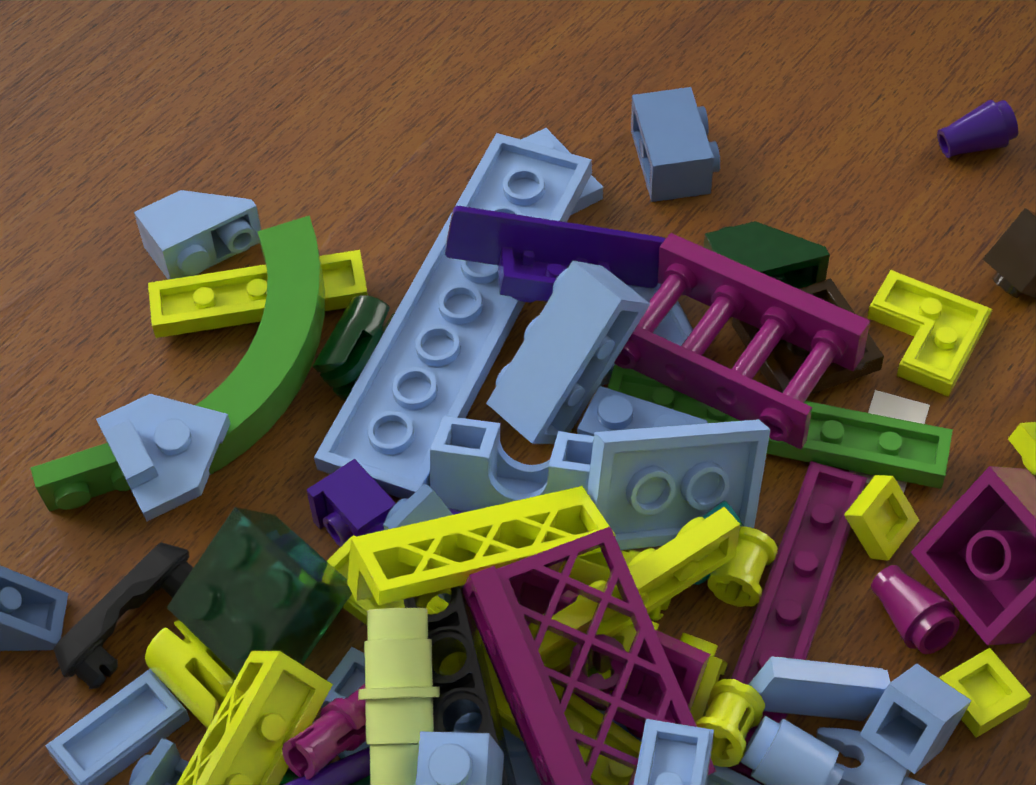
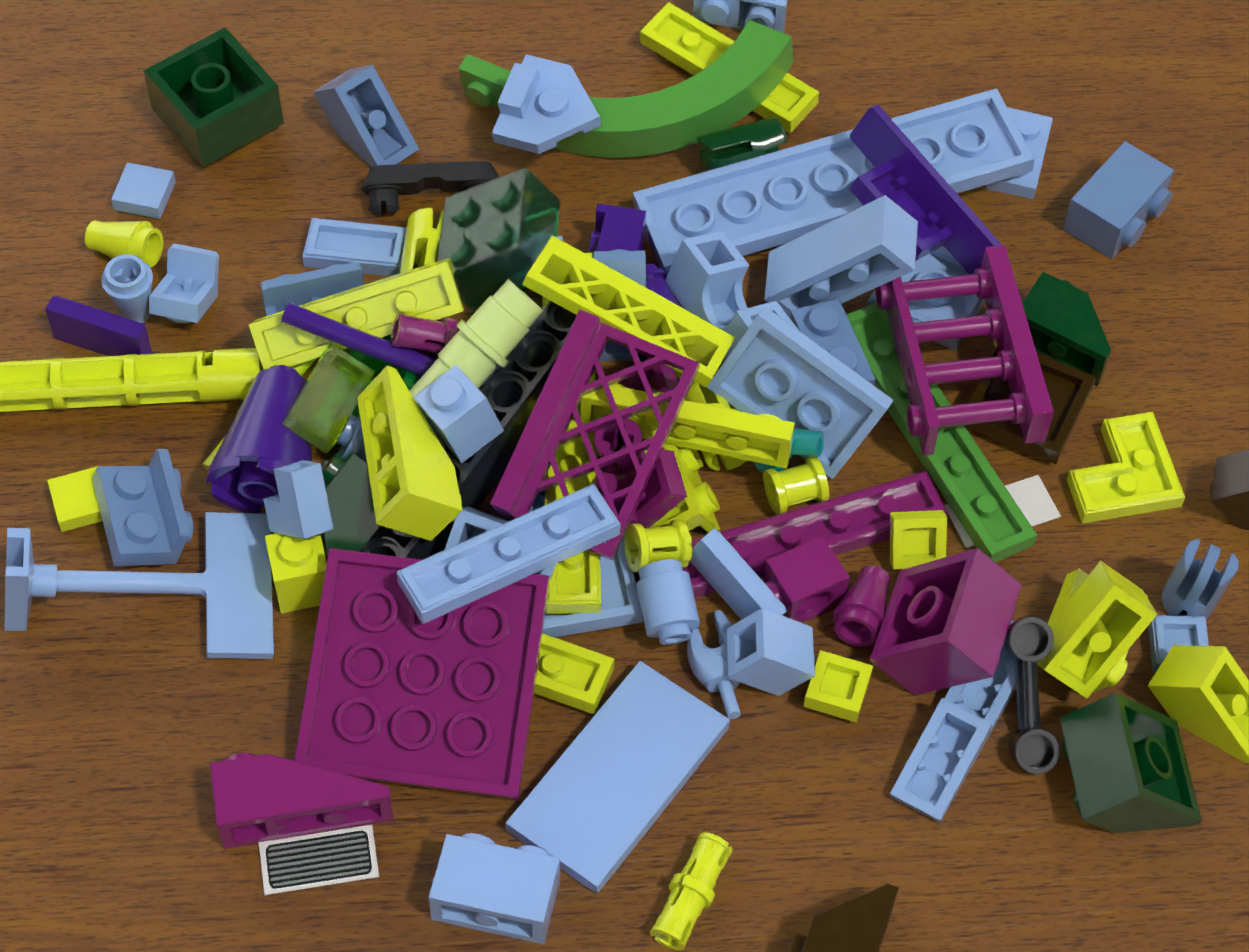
camera: 45 degrees right, 5 degrees up
(855, 626) = (807, 579): none -> magenta brick

